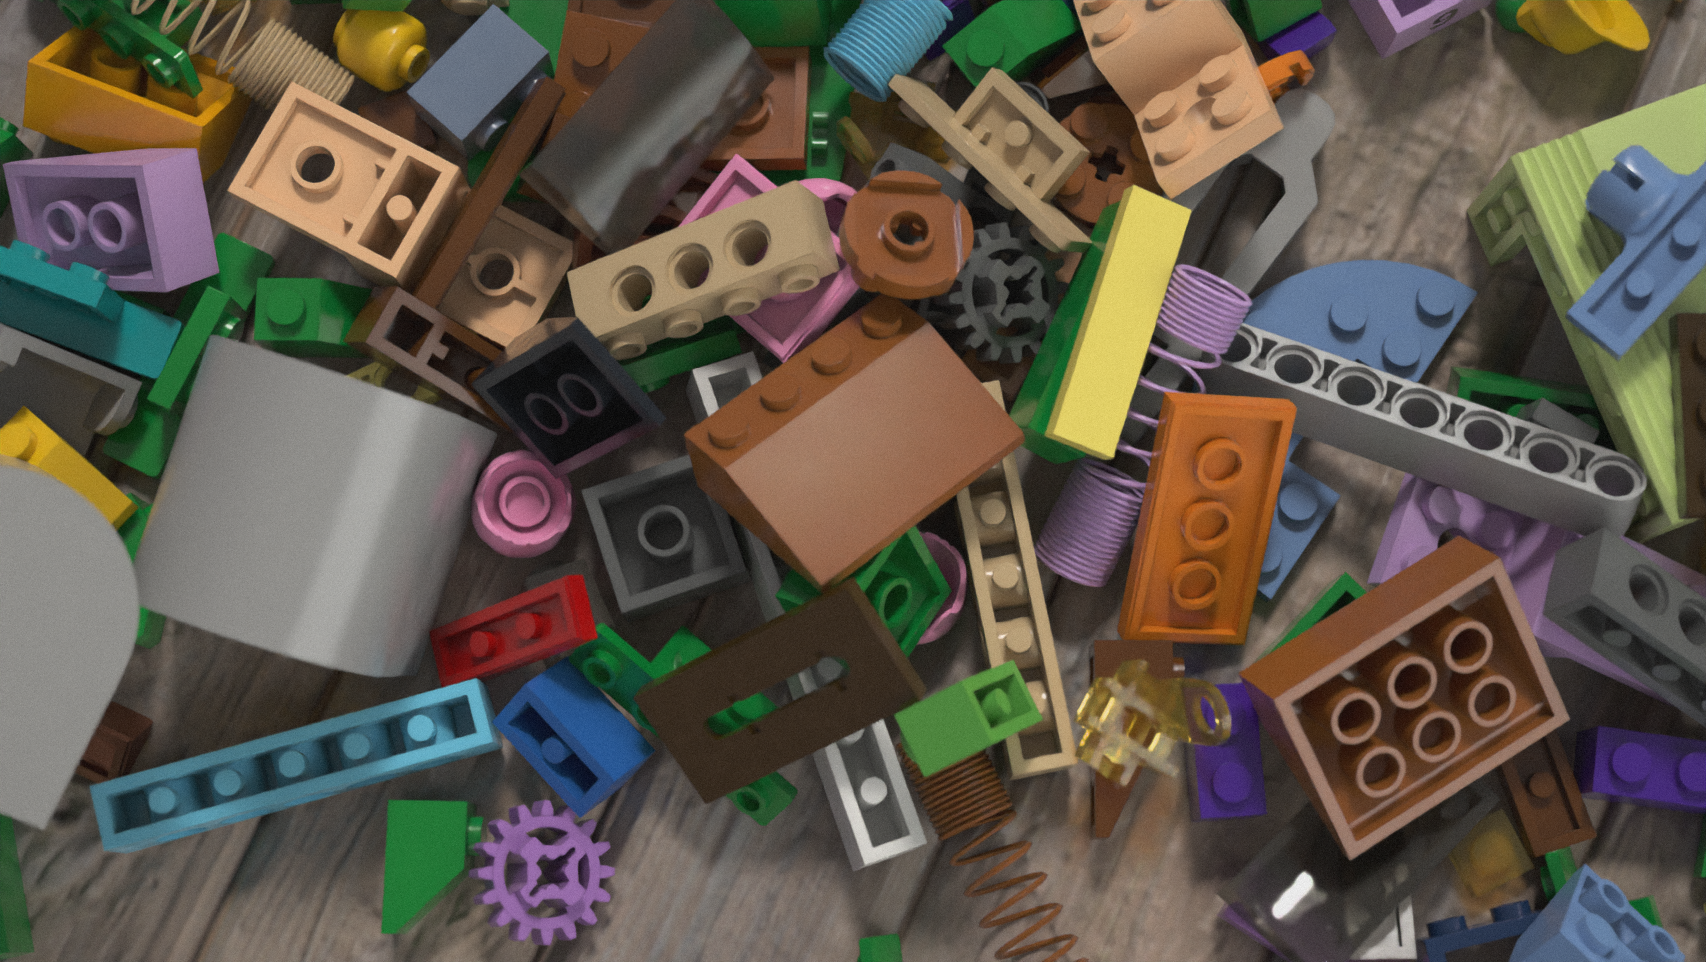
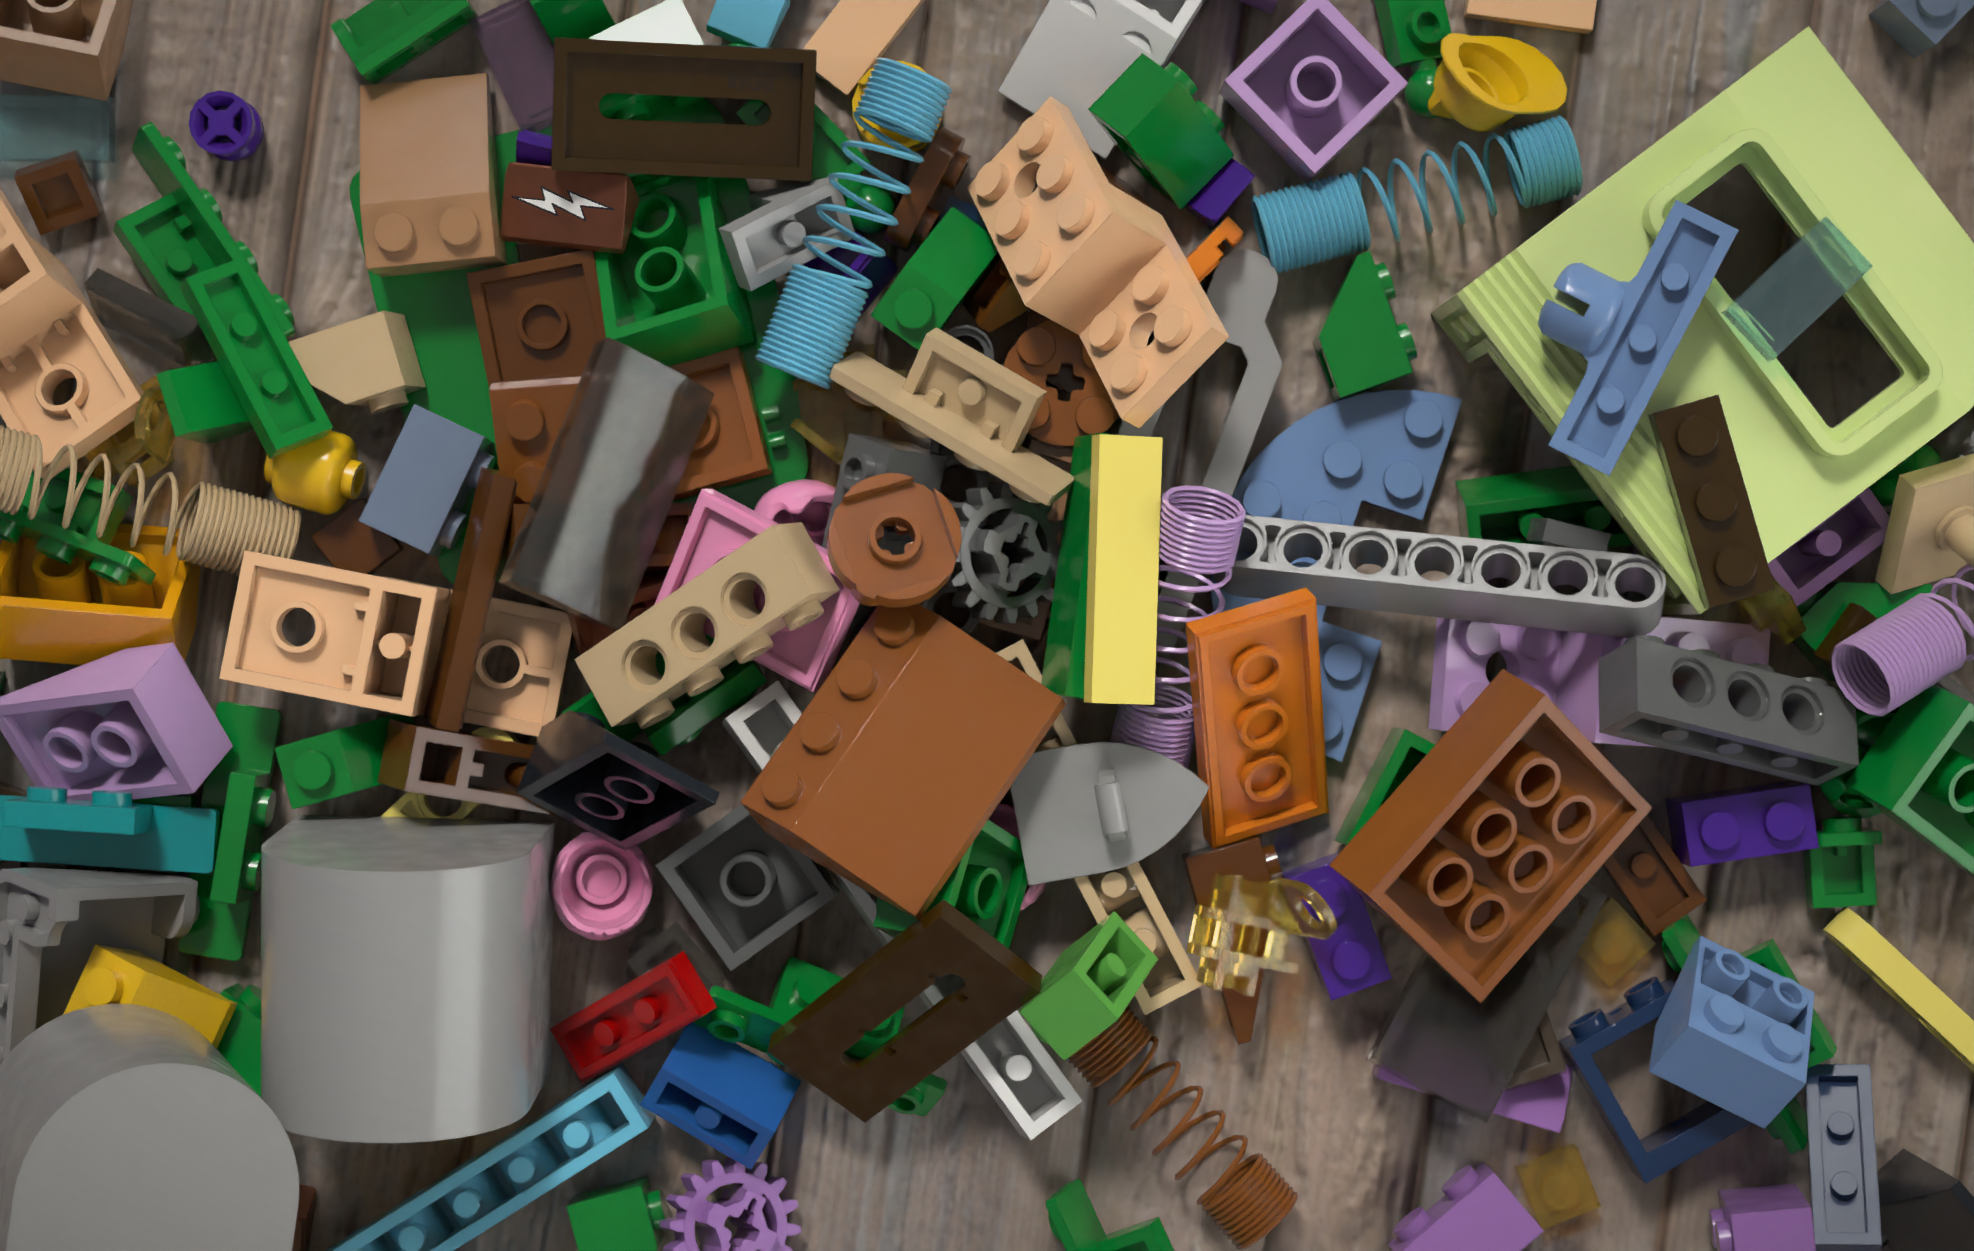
camera: 15 degrees left, 10 degrees up
(1026, 557) = (1099, 807): none -> light grey shield
(1396, 206) = (1359, 337): none -> green slope
(1399, 87) = (1330, 215): none -> medium azure piece

